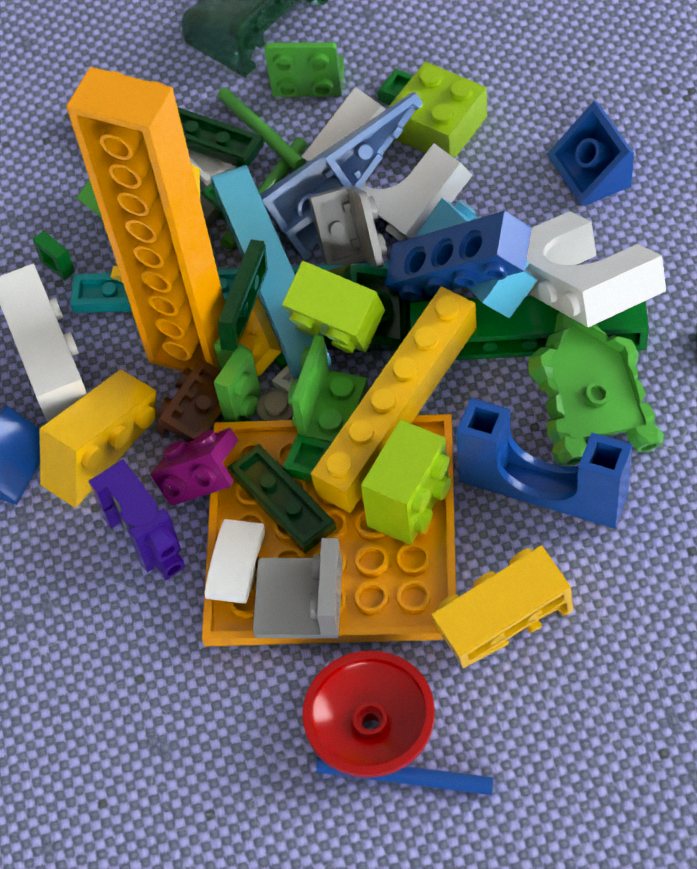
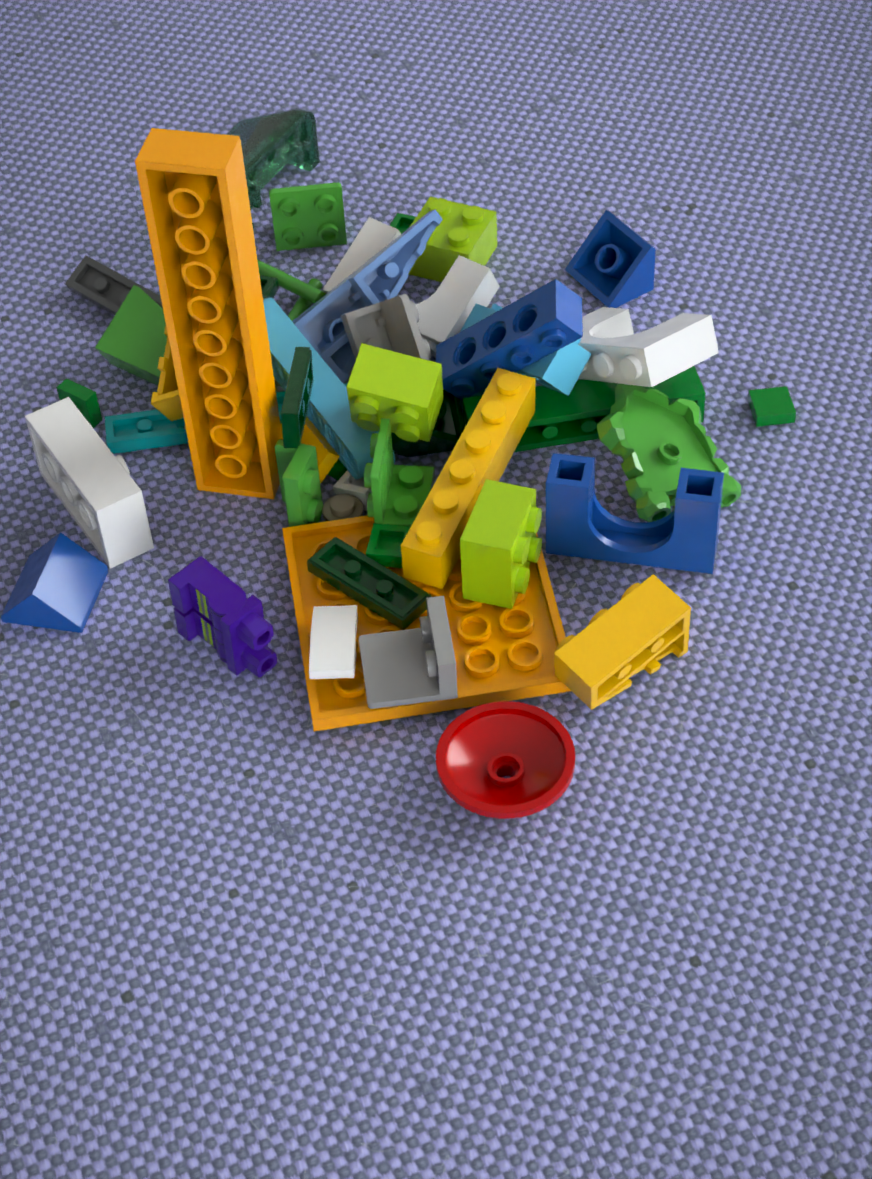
camera: 15 degrees left, 10 degrees down
(93, 435) = (152, 551): yellow wedge -> none
(194, 405) = (258, 515): reddish brown bracket -> none
(195, 467) = (276, 565): magenta bracket -> none
(426, 778) = (558, 818): blue bar -> none

